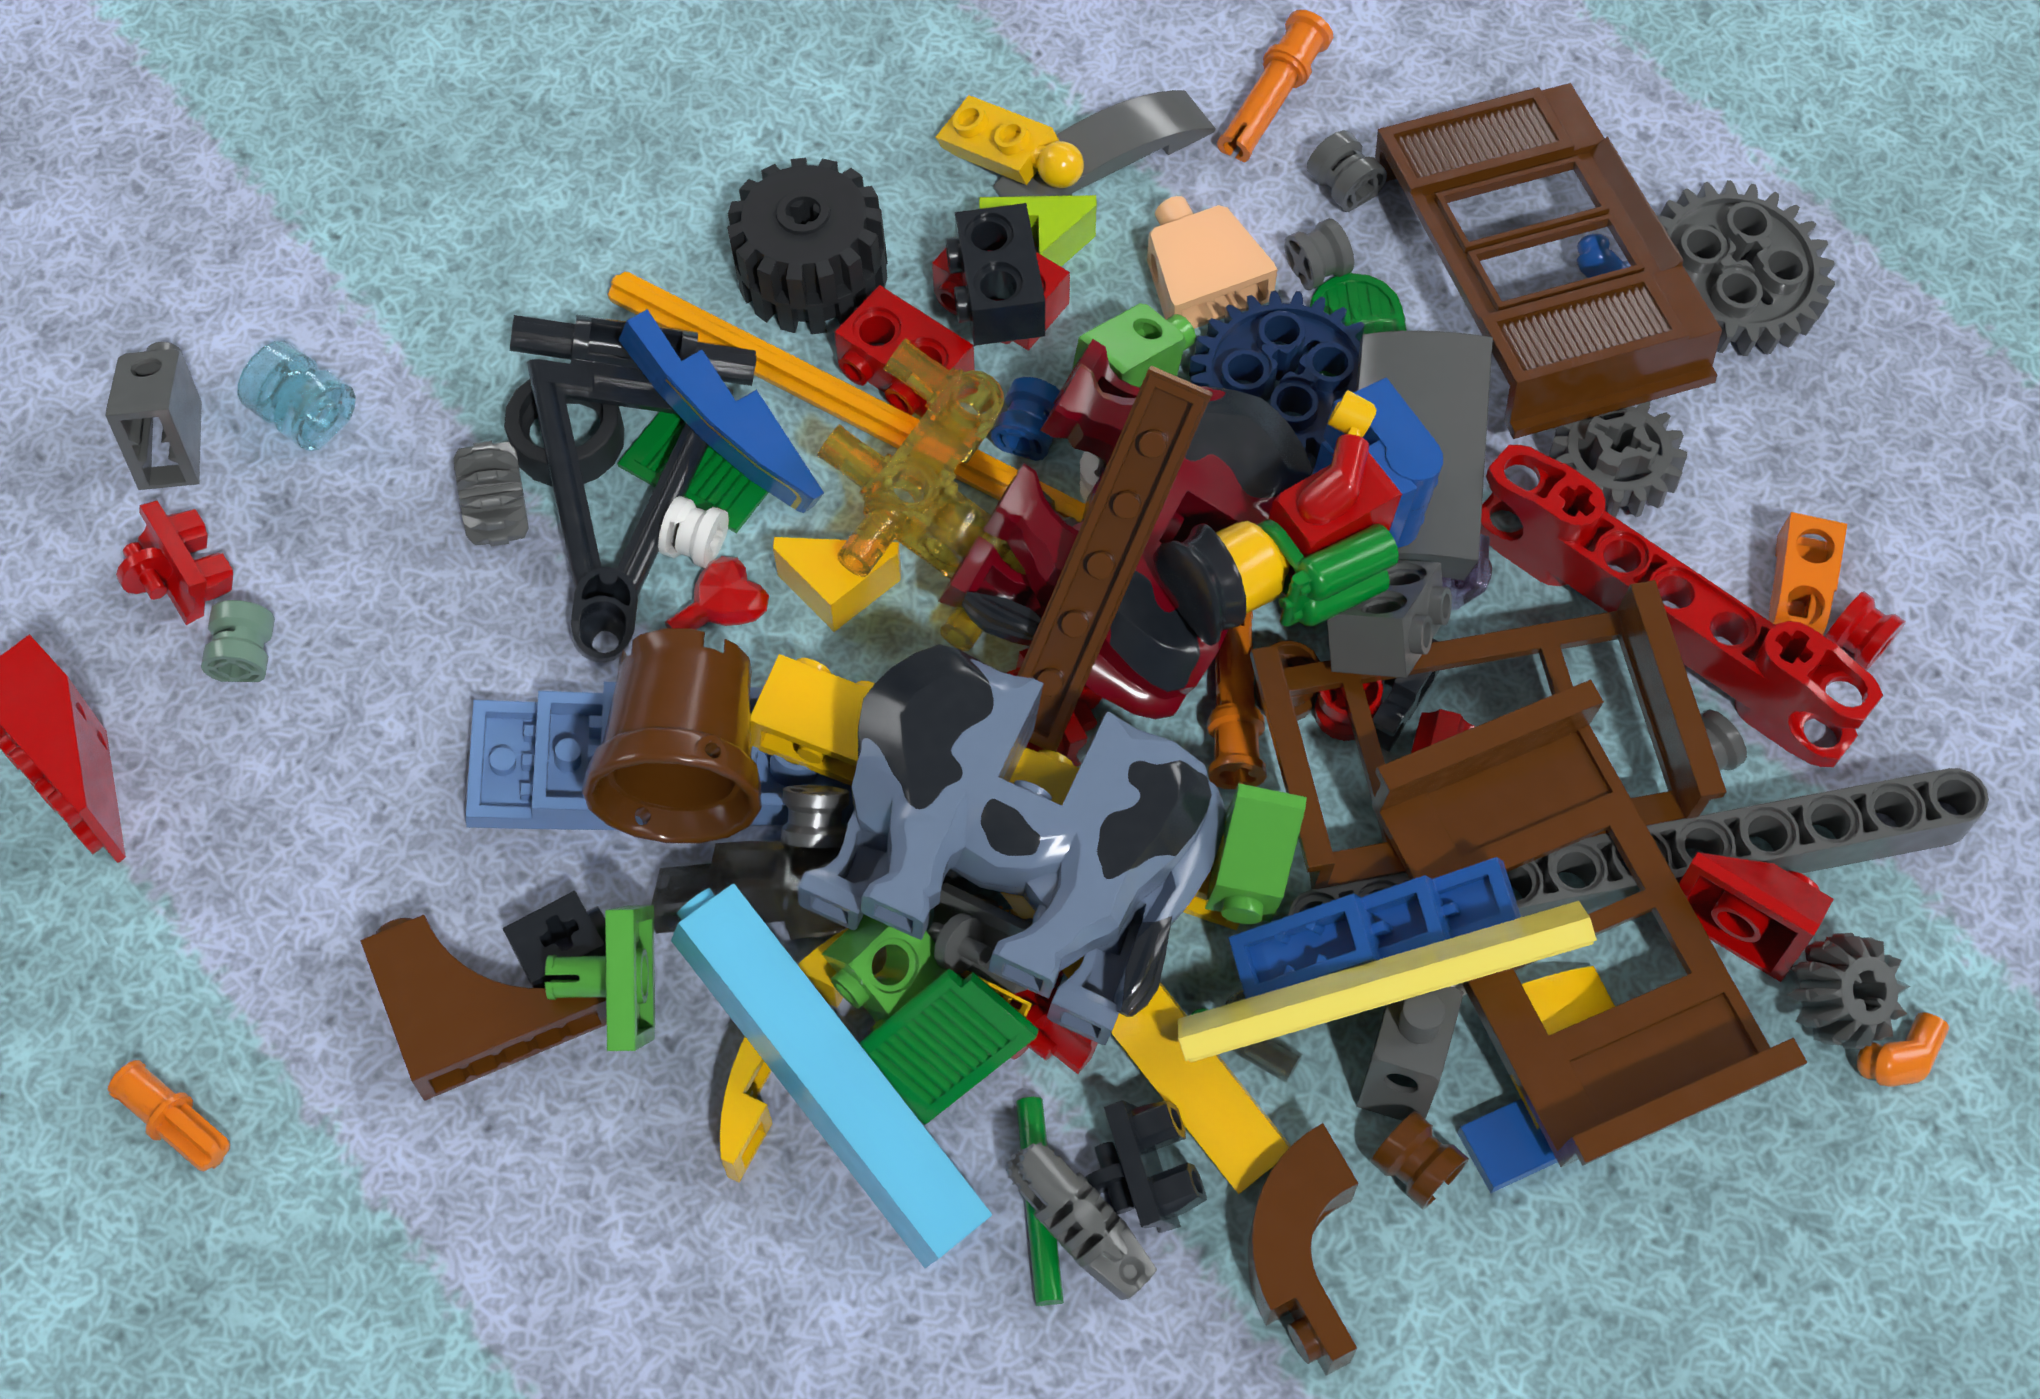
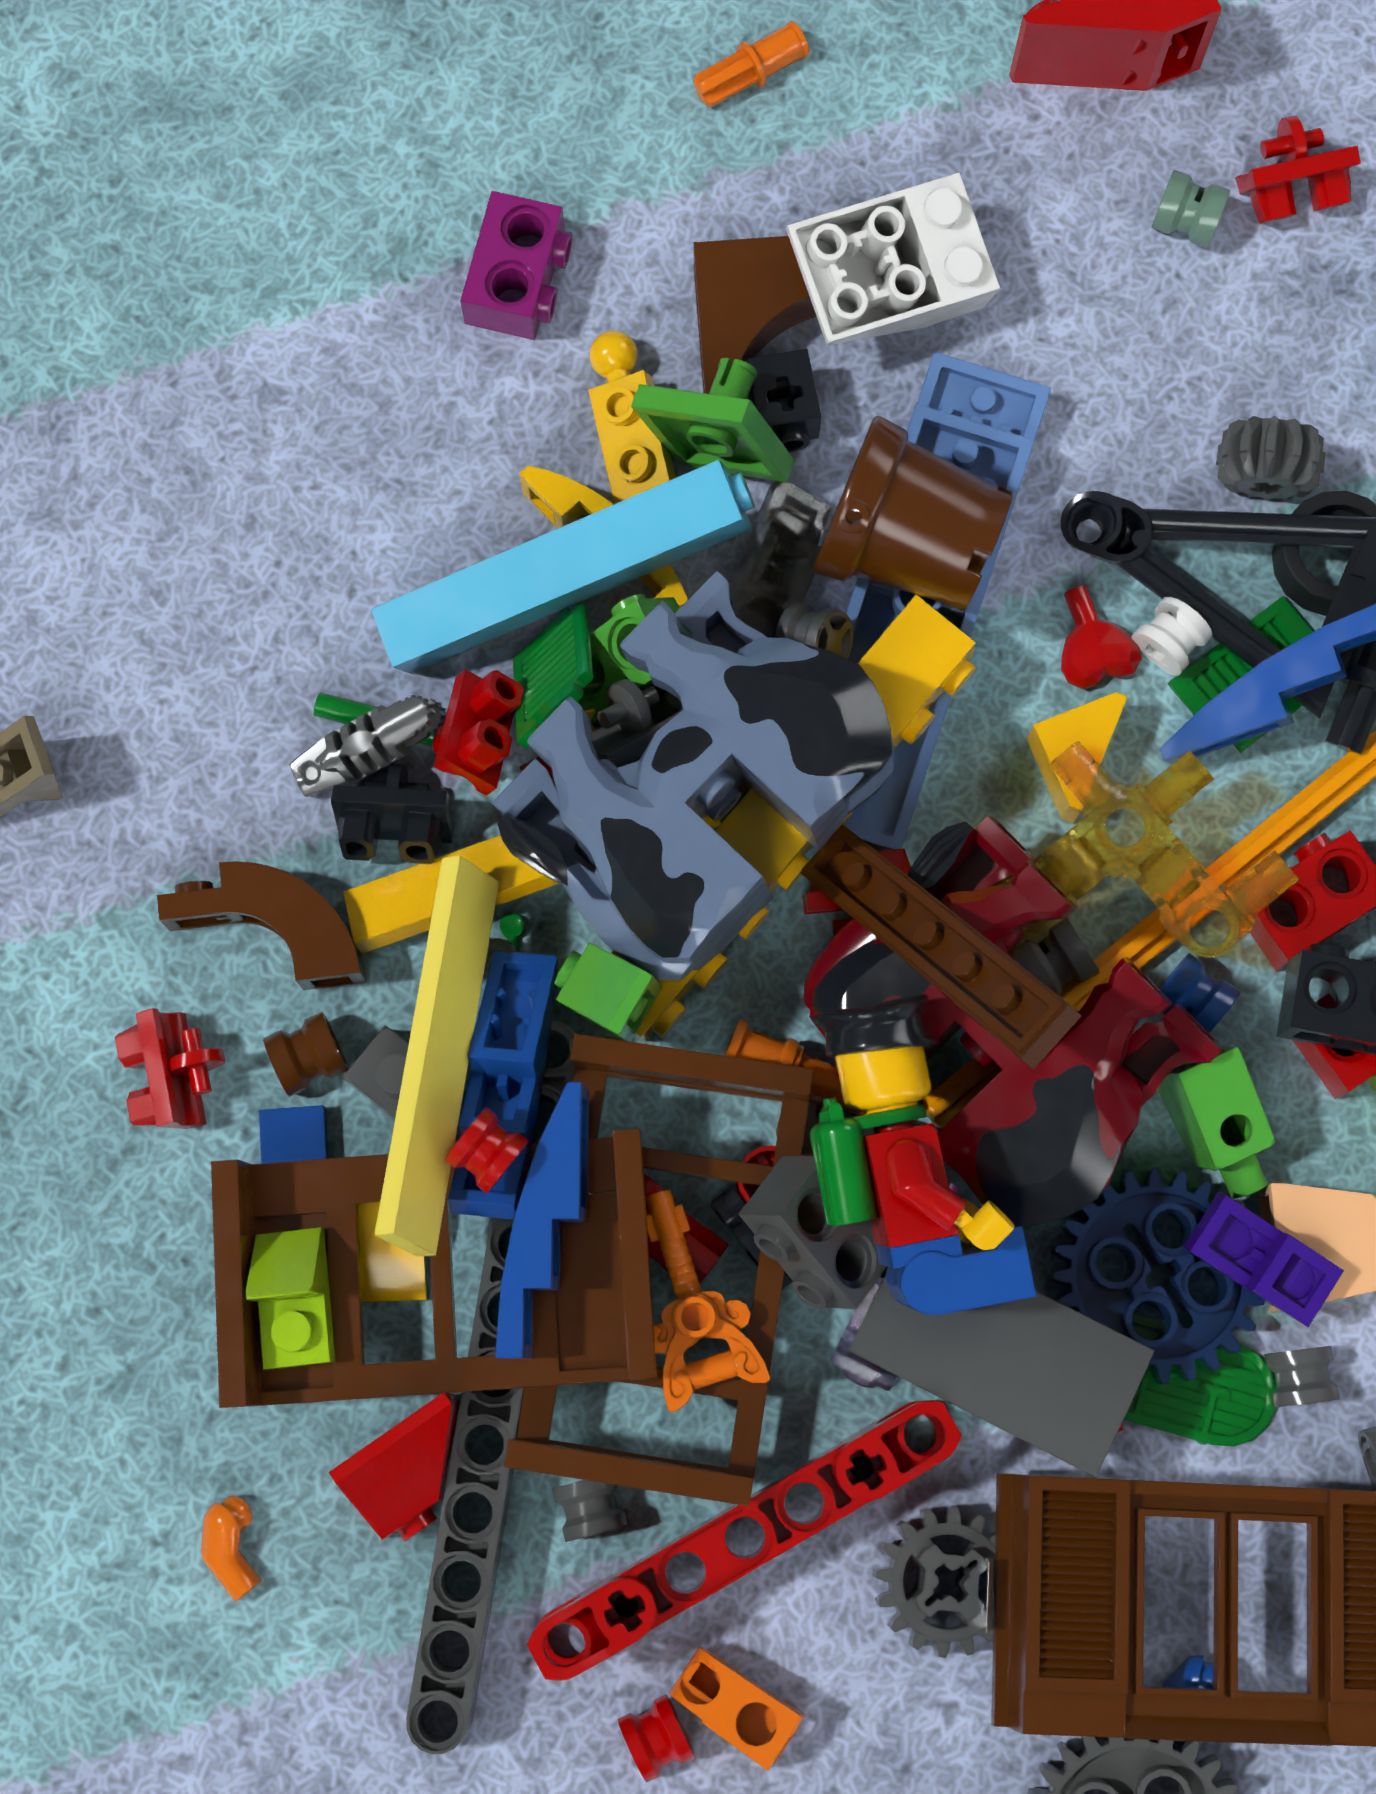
camera: 110 degrees right, 15 degrees up
(378, 871) = (895, 262): none -> white slope
(483, 1292) = (504, 266): none -> magenta brick
(627, 1094) = (629, 448): none -> yellow plate
(1029, 1107) = (478, 728): none -> red hips
(1244, 289) = (1263, 1259): none -> dark purple slope
(1461, 890) = (486, 1150): none -> red wheel
(1471, 832) = (551, 1196): none -> blue slope
(1507, 687) = (695, 1316): none -> orange piece
(1521, 1276) = (174, 1069): none -> red hips
(1618, 406) = (989, 1595): none -> white sticker
(1665, 1052) = (293, 1298): none -> lime slope
(1848, 991) = (296, 1514): dark grey gear -> none

